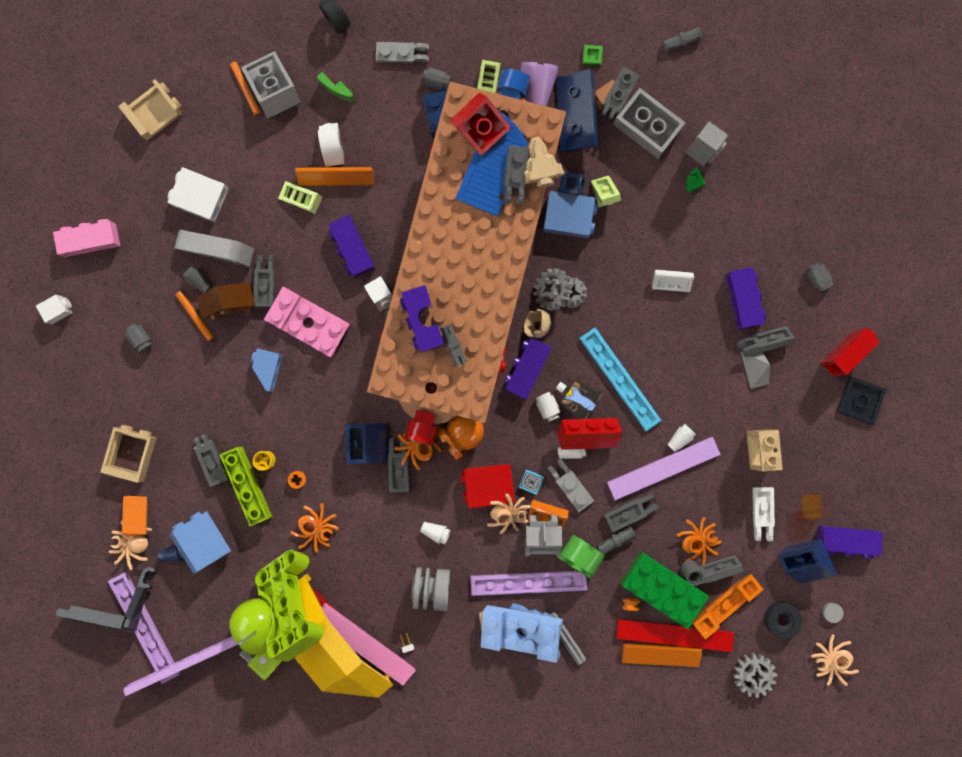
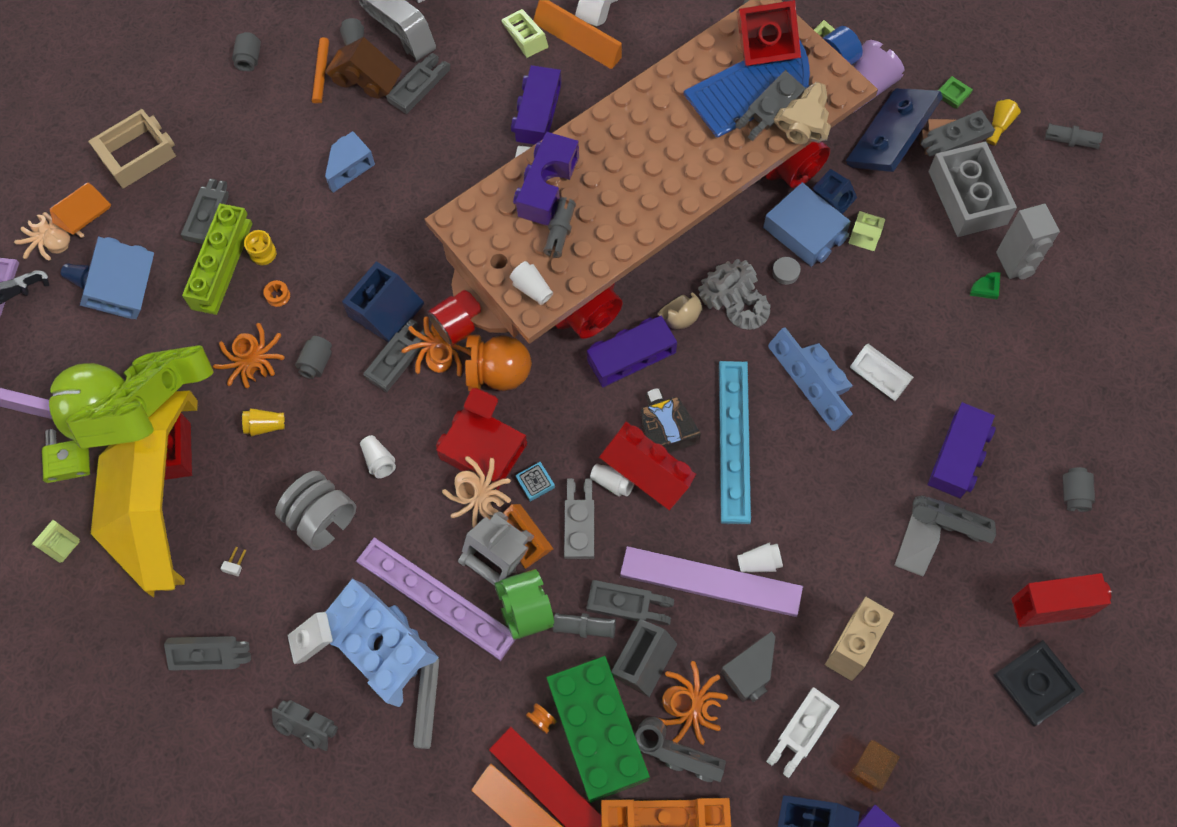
camera: 40 degrees right, 20 degrees down
(290, 312) = (420, 126): bright pink piece -> none
(306, 707) = (56, 541): none -> yellowish green slope
(353, 502) = (314, 357): none -> dark grey brick
(355, 560) = (260, 421): none -> yellow cone
(370, 647) = (187, 522): bright pink tile -> none
(435, 700) = (206, 653): none -> dark grey hinge
(464, 392) = (529, 281): none -> white cone
(473, 464) = (481, 403): none -> red slope
(484, 655) = (310, 637): none -> white plate
(507, 698) = (291, 718): none -> dark grey hinge
(548, 406) = (622, 407): white brick -> none
(576, 252) = (786, 270): none -> light grey tile
(633, 54) = (1005, 113): none -> yellow cone
(638, 308) = (815, 376): none -> medium blue bracket
(659, 535) = (644, 657): none -> dark grey brick
(718, 500) = (751, 669): none -> dark grey slope

